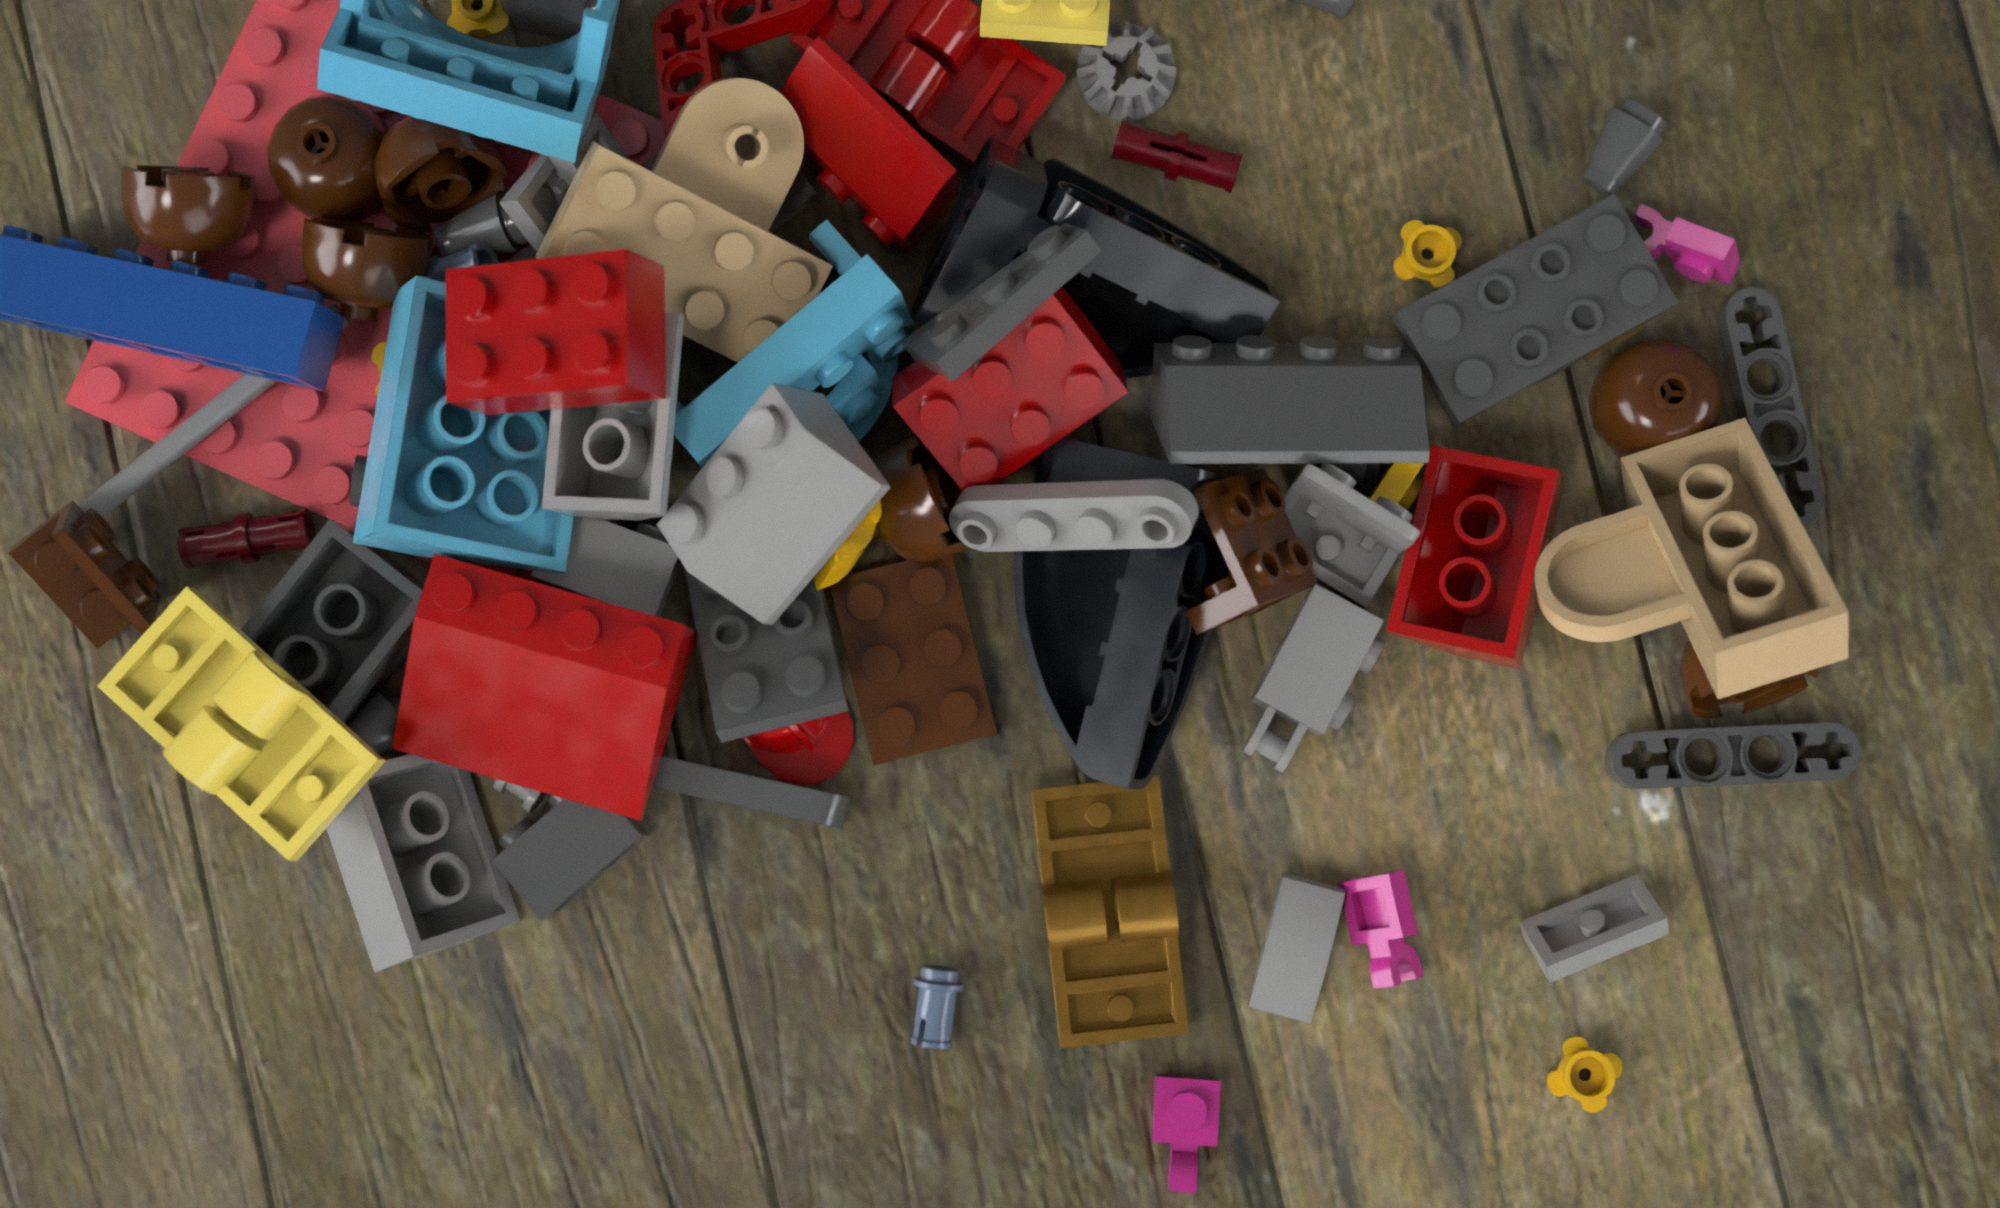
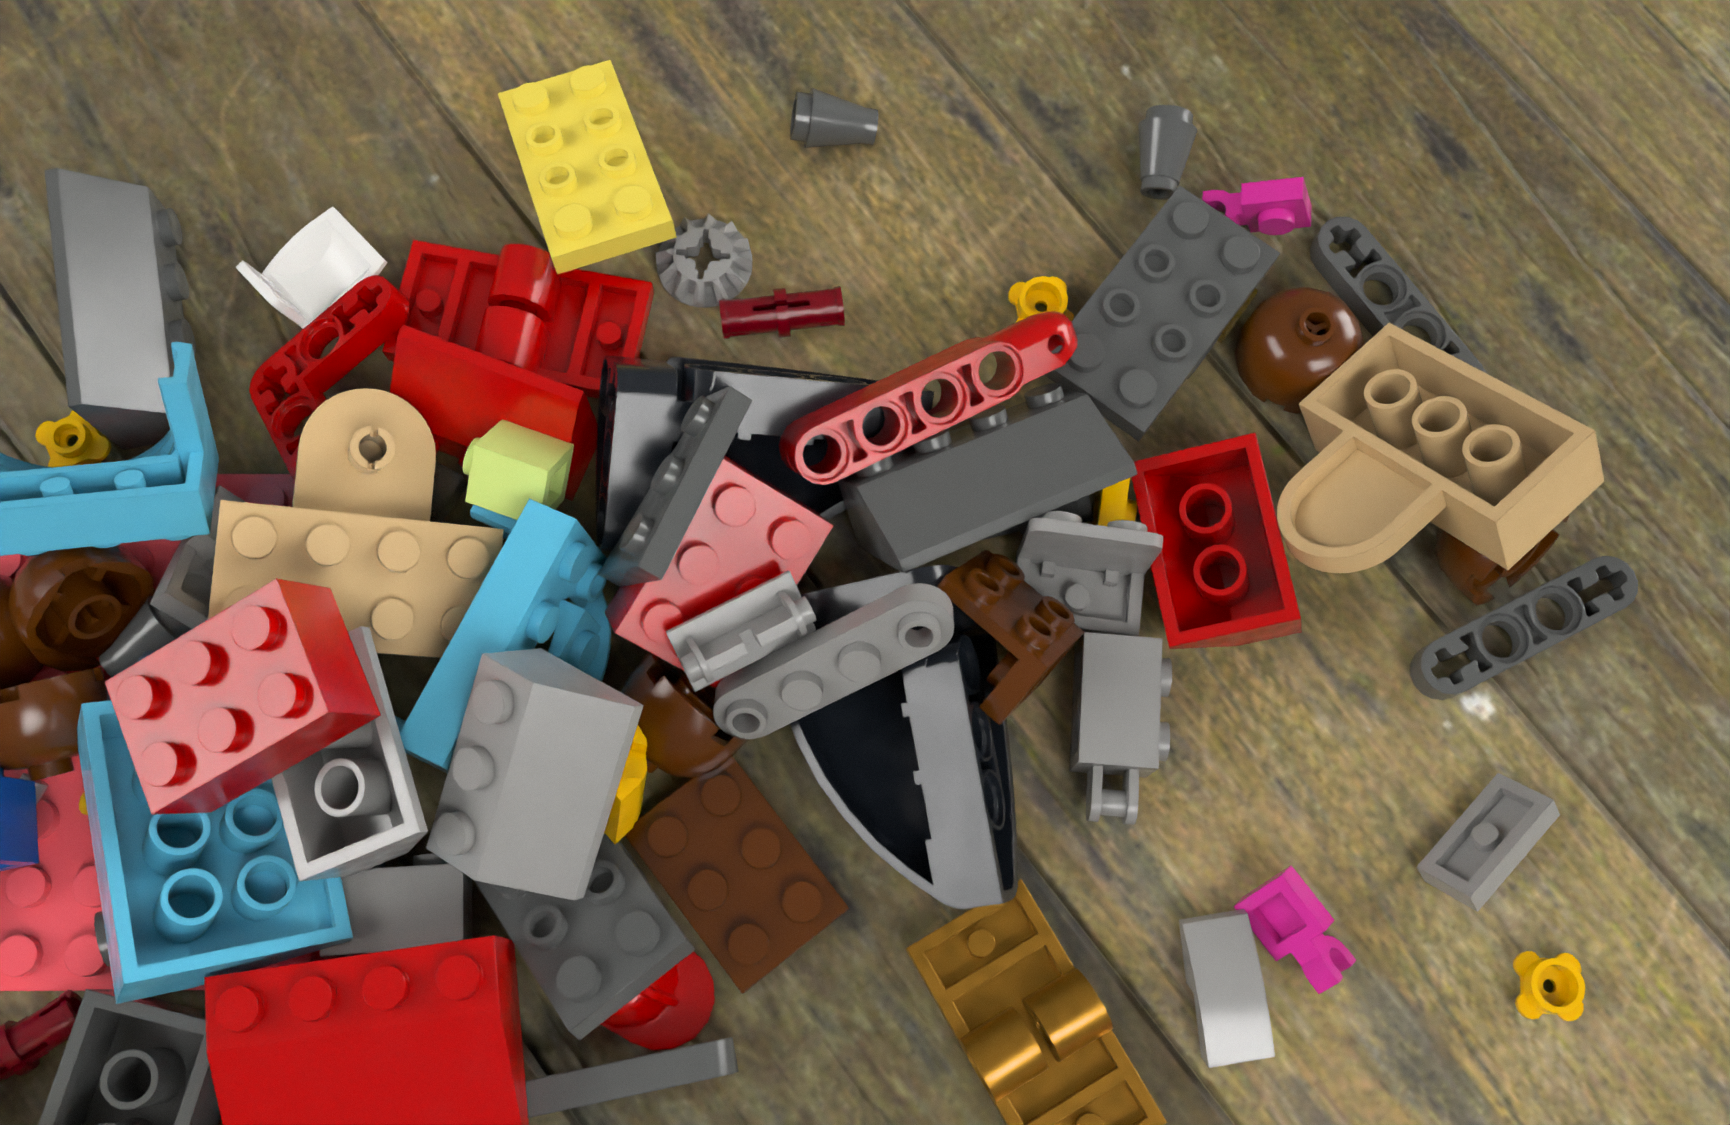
camera: 30 degrees left, 10 degrees down
(866, 215) = (514, 466): none -> yellowish green brick
(1005, 453) = (742, 630): none -> light grey hinge
(1372, 309) = (1020, 354): none -> red piece

